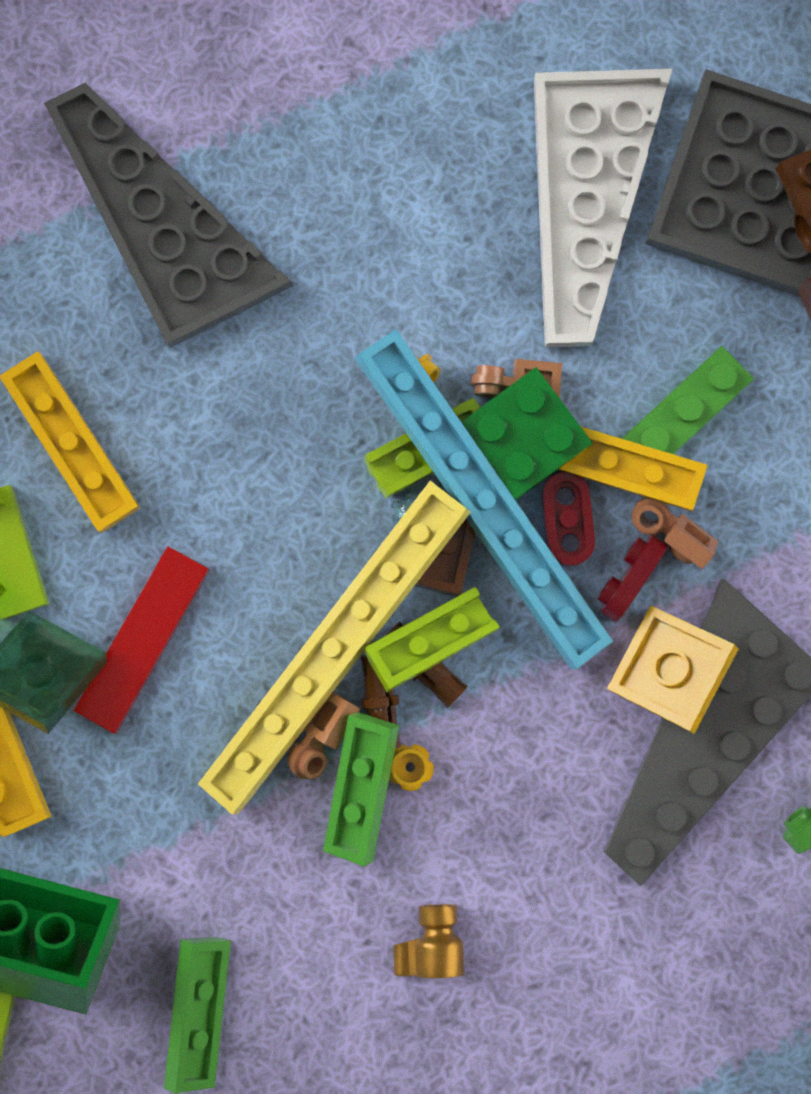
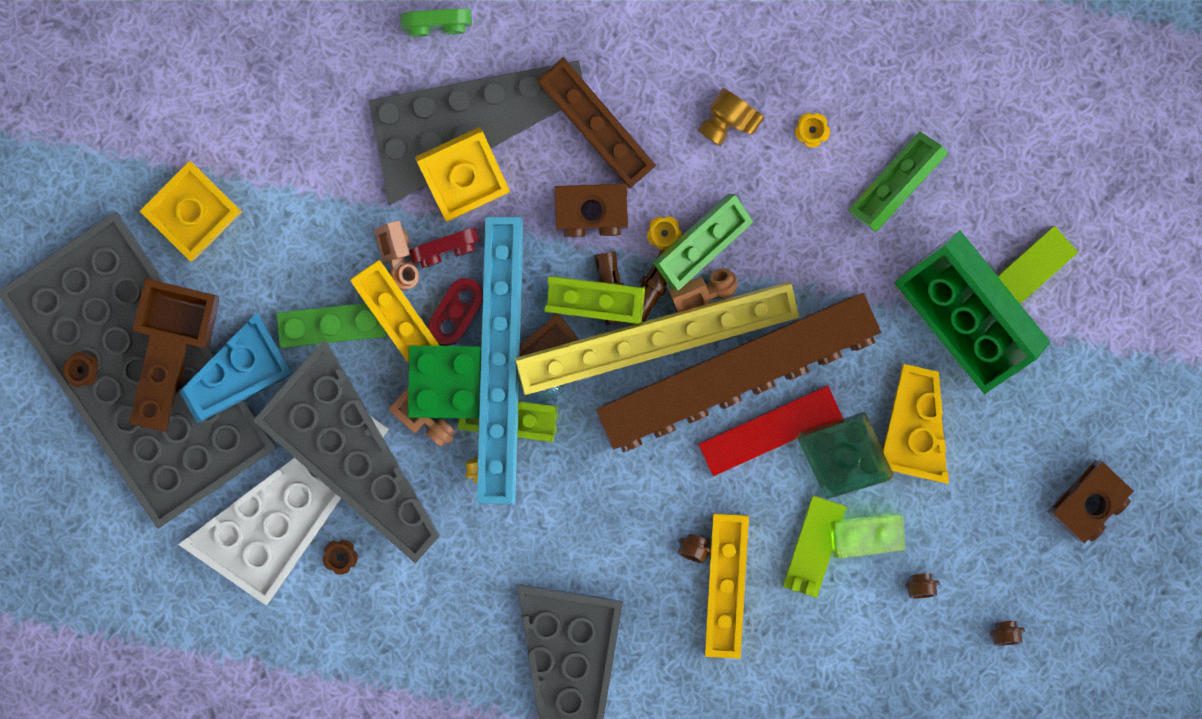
camera: 145 degrees left, 5 degrees up
(133, 456) = (694, 548): none -> reddish brown plate
(217, 678) = (738, 370): none -> reddish brown brick
(332, 1013) = (812, 139): none -> yellow plate
(501, 168) = (340, 566): none -> reddish brown plate
(535, 726) = (571, 199): none -> reddish brown brick
(572, 831) = (595, 122): none -> reddish brown tile
(593, 289) = (335, 438): none -> dark grey wing
(749, 285) = (238, 371): none -> dark azure wing

